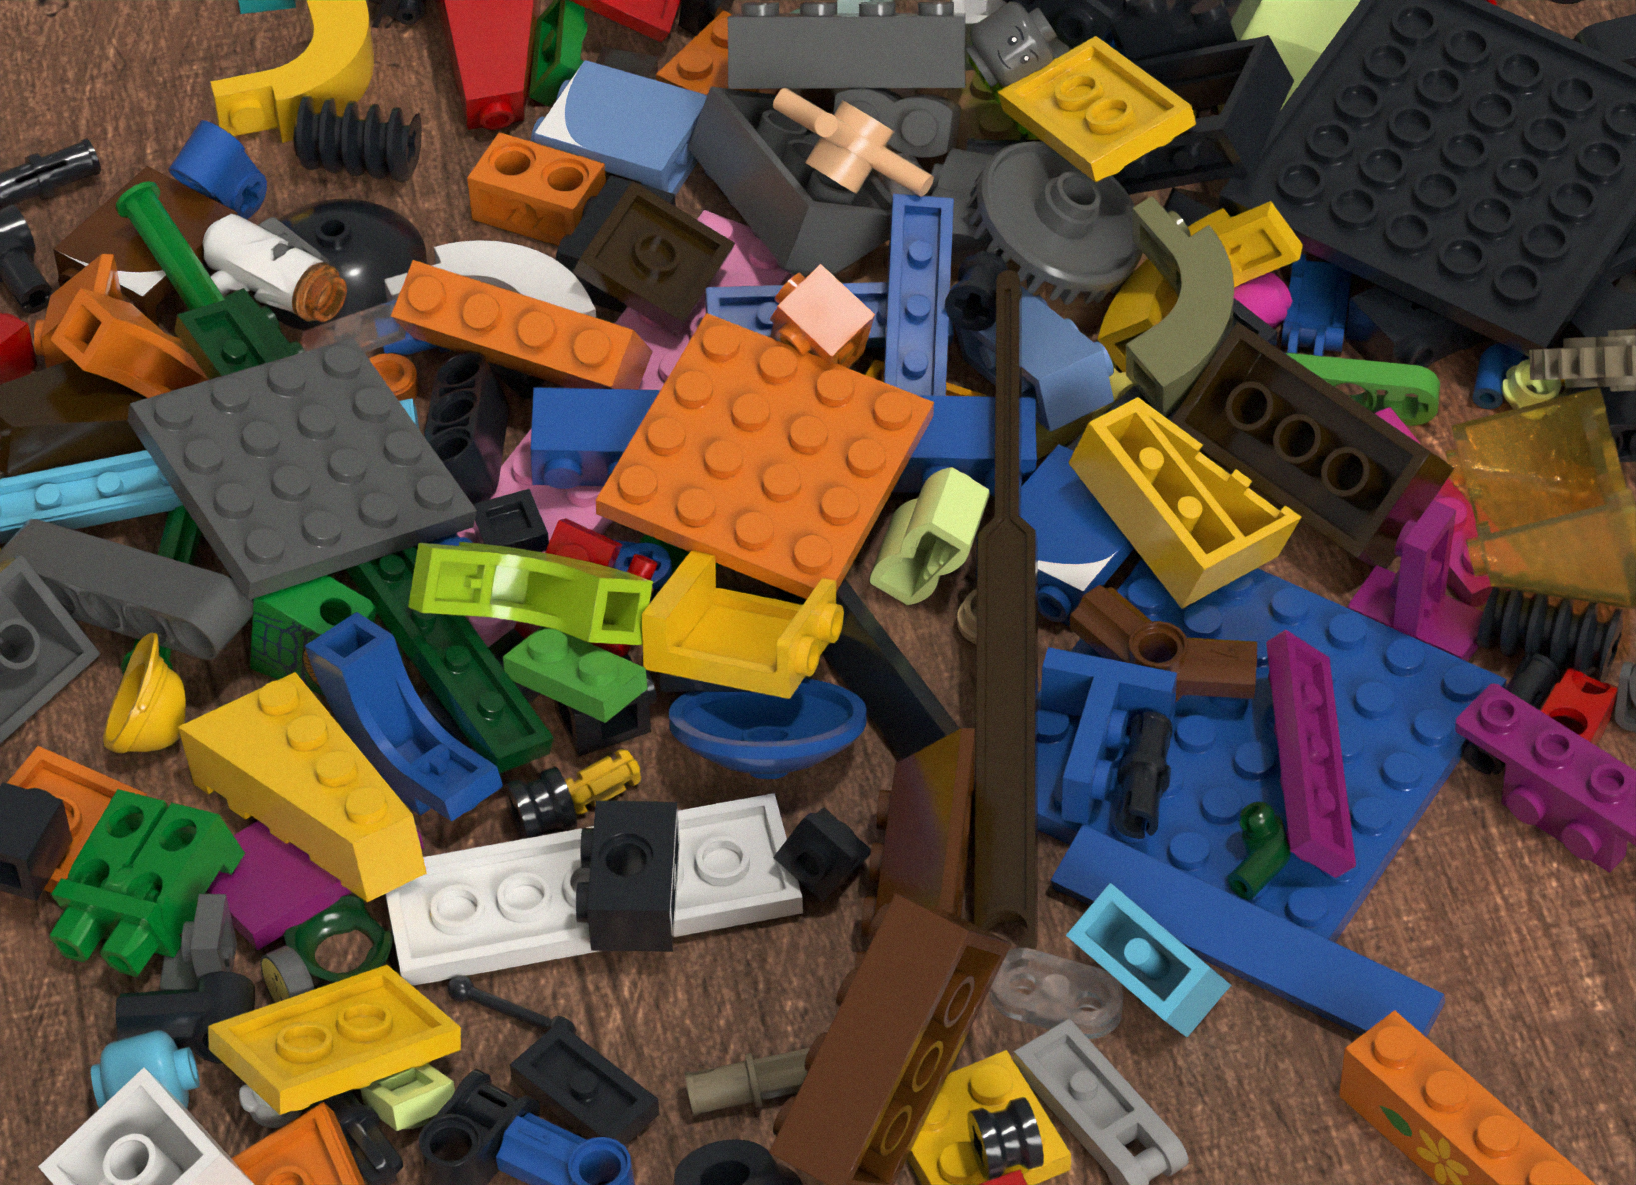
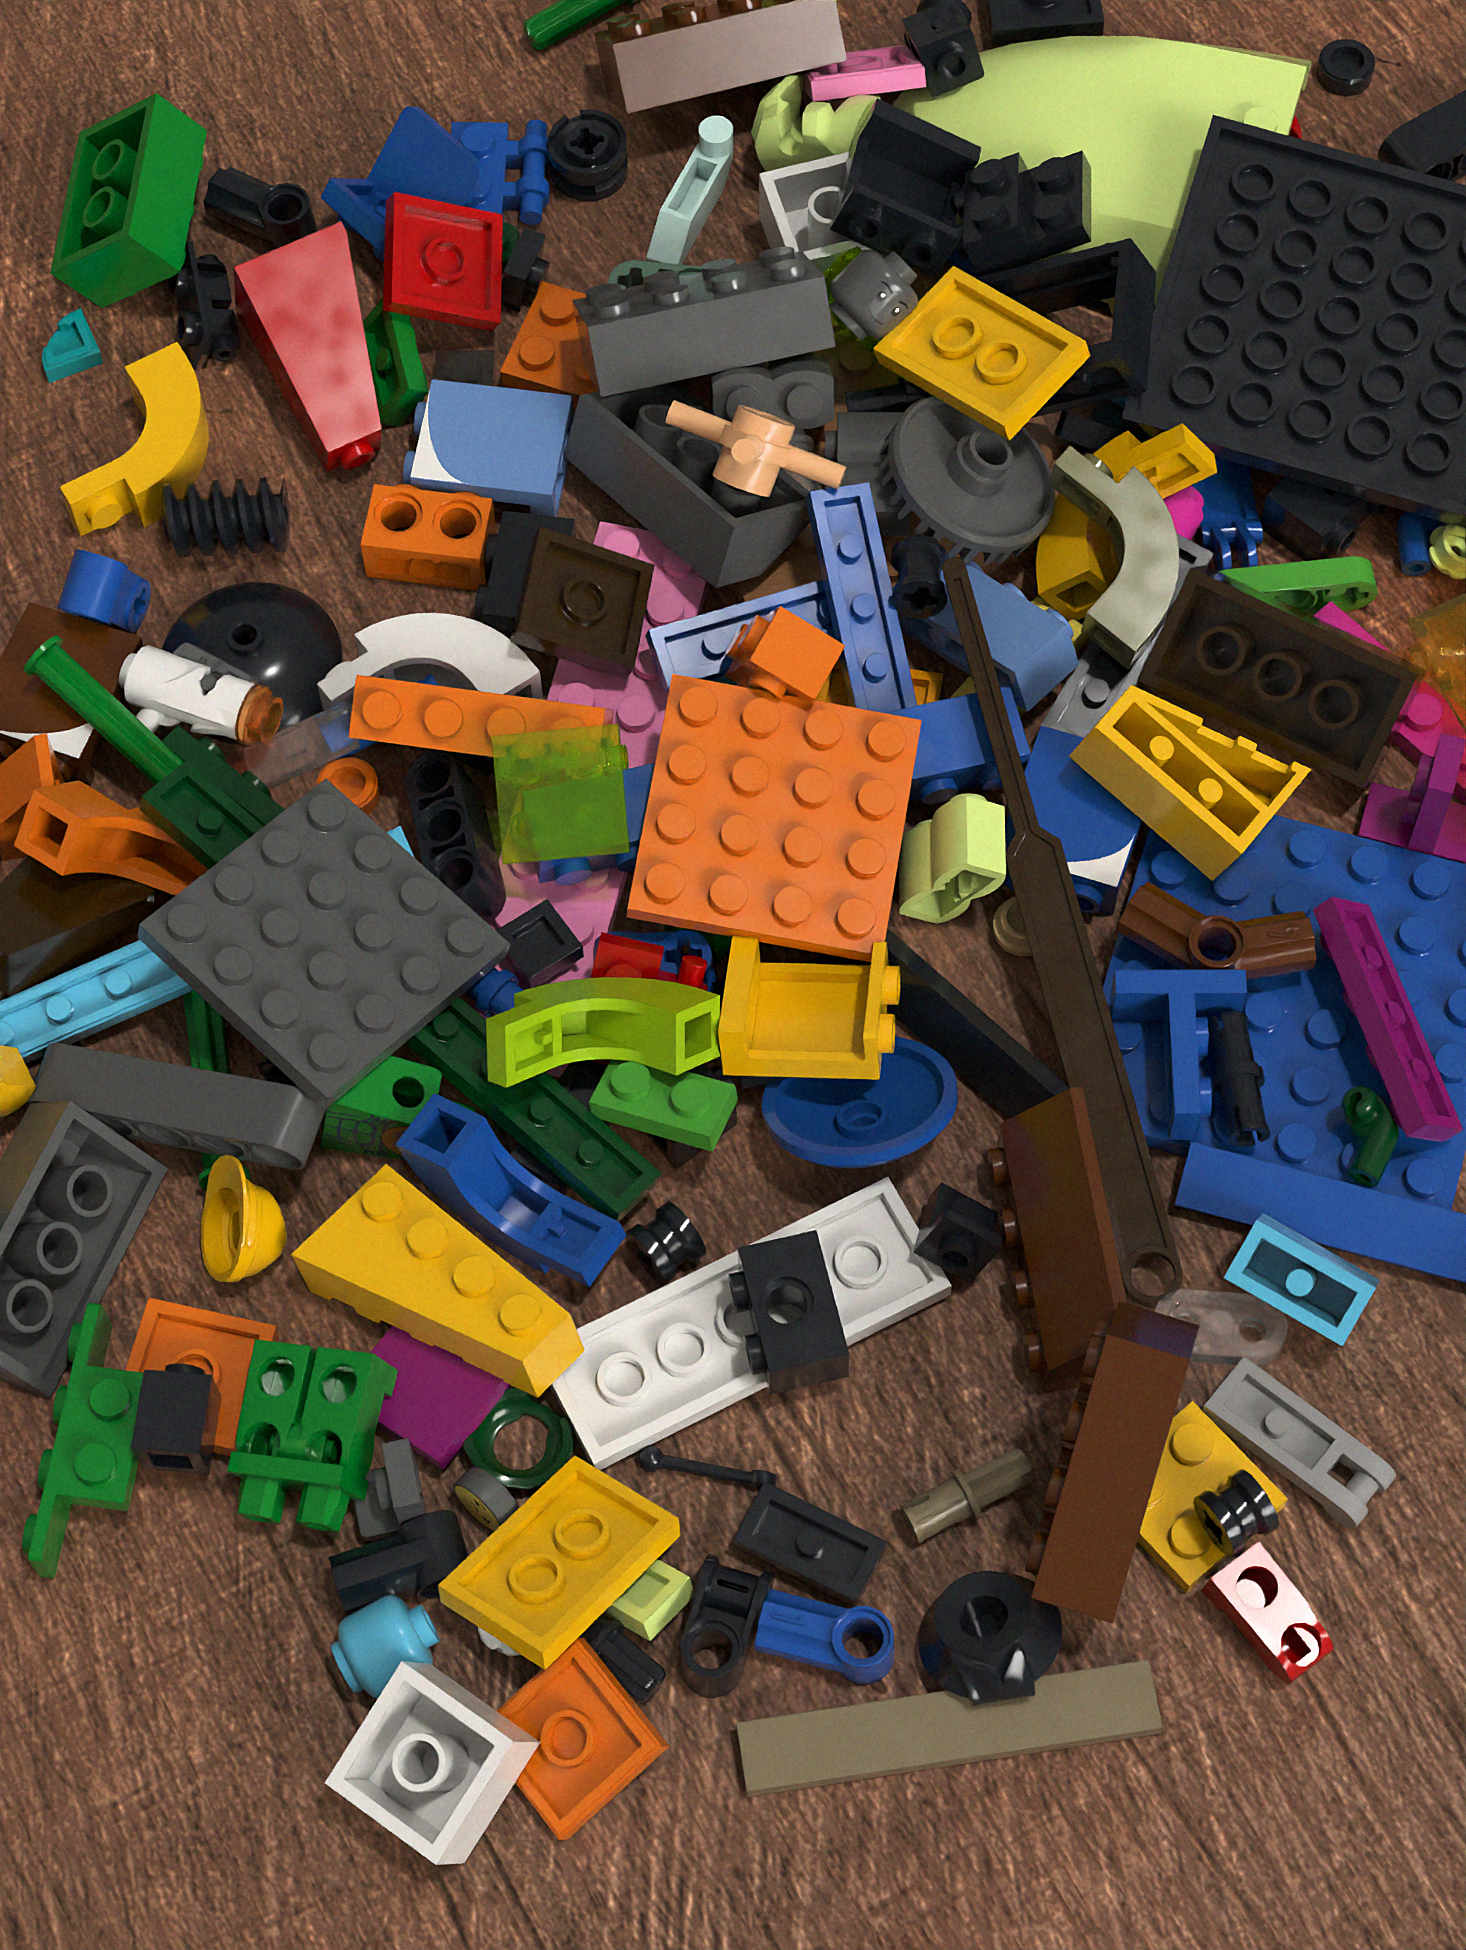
camera: 15 degrees left, 15 degrees up
(566, 389) = (561, 793): none -> clear neon green hinge
(603, 780) = (713, 1195): yellow piece -> none

